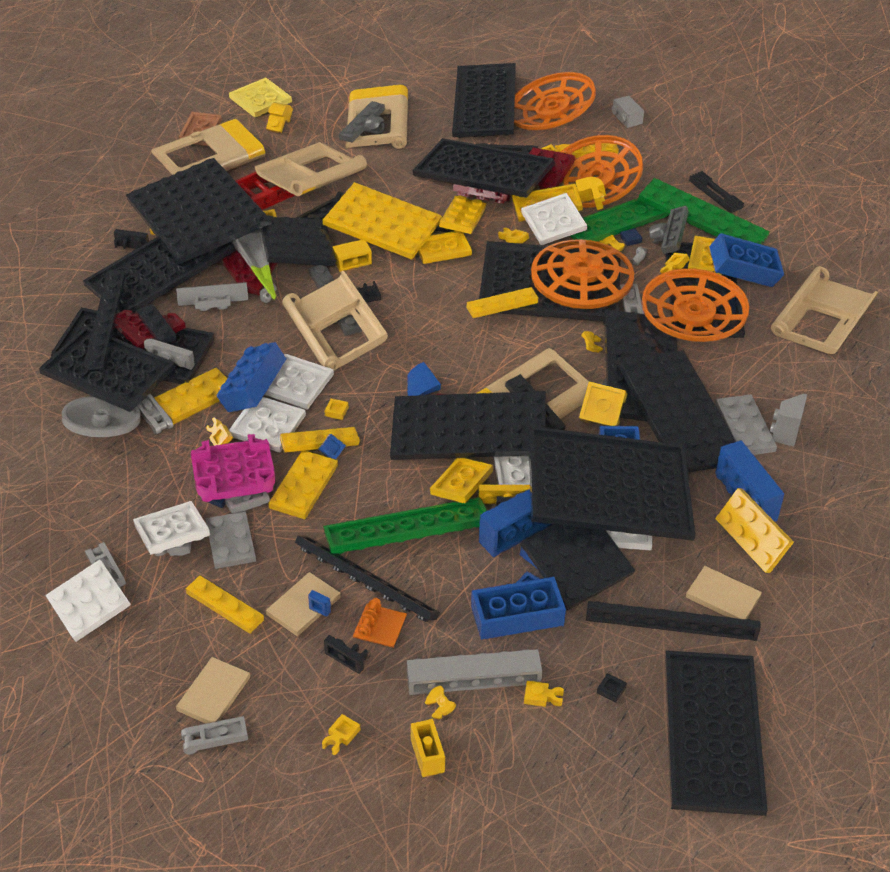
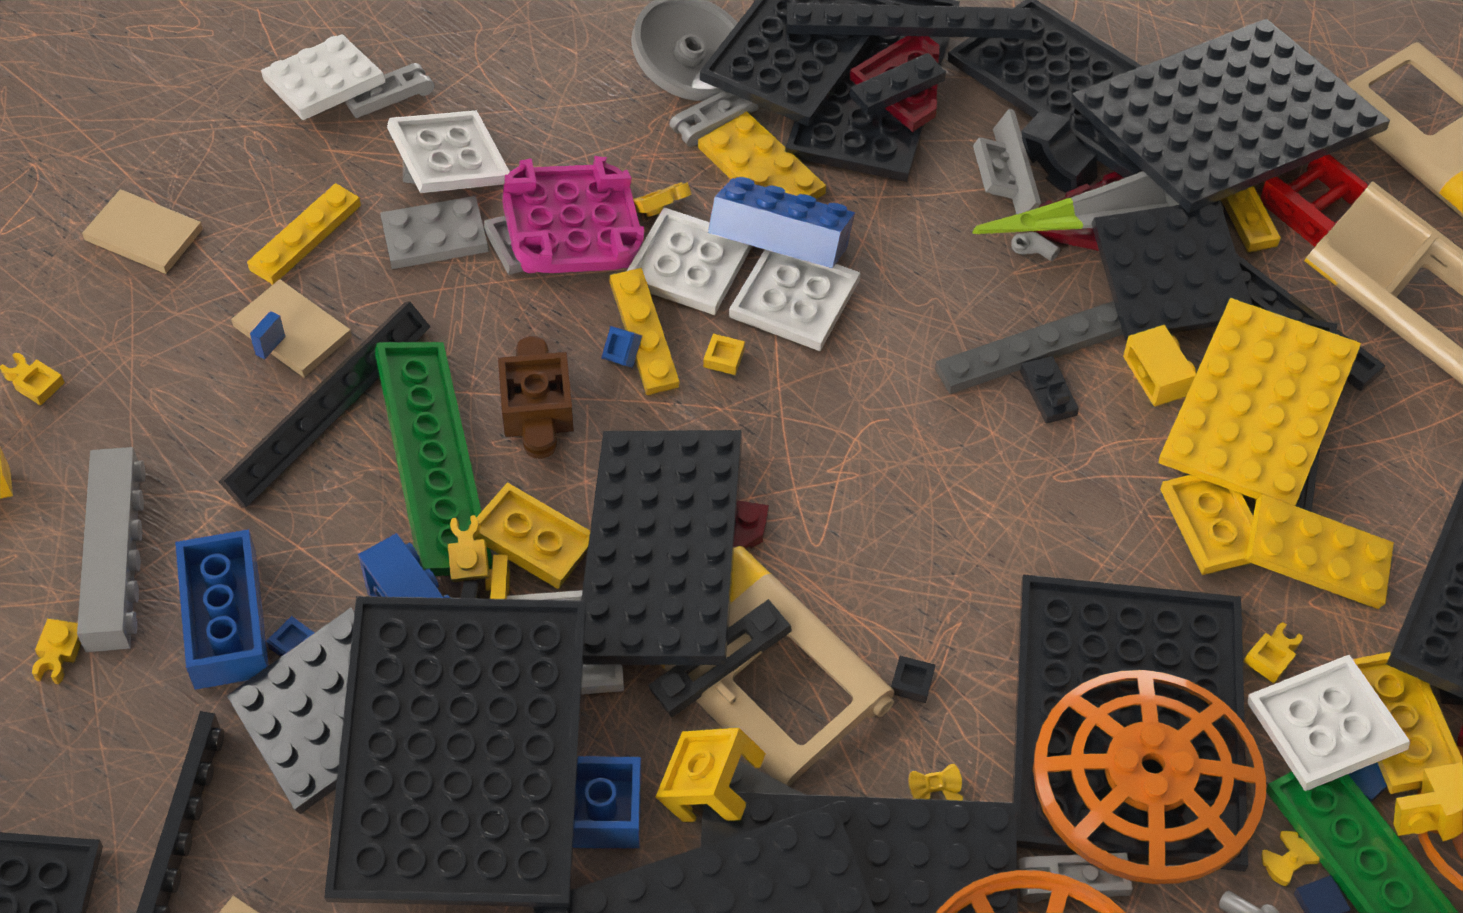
camera: 90 degrees right, 10 degrees up
(130, 239) = (1150, 36): black plate -> none
(180, 356) = (832, 111): light grey plate -> none
(211, 273) = (1059, 152): none -> black brick
(214, 734) = (63, 236): light grey plate -> none
(303, 484) = (564, 320): yellow plate -> none
(328, 306) = (977, 312): tan piece -> none
(347, 656) = (175, 377): black plate -> none
(367, 480) = (535, 396): none -> reddish brown brick
(379, 624) = (231, 424): orange hinge -> none
(421, 381) = (796, 481): blue slope -> none
(445, 706) = (53, 510): yellow piece -> none
(481, 194) = (1392, 565): plate -> none
(482, 497) = (469, 556): none -> yellow plate
(502, 302) = (1030, 615): yellow plate -> none
(536, 345) = (913, 679): none -> black plate
(611, 688) = (51, 754): black tile -> none

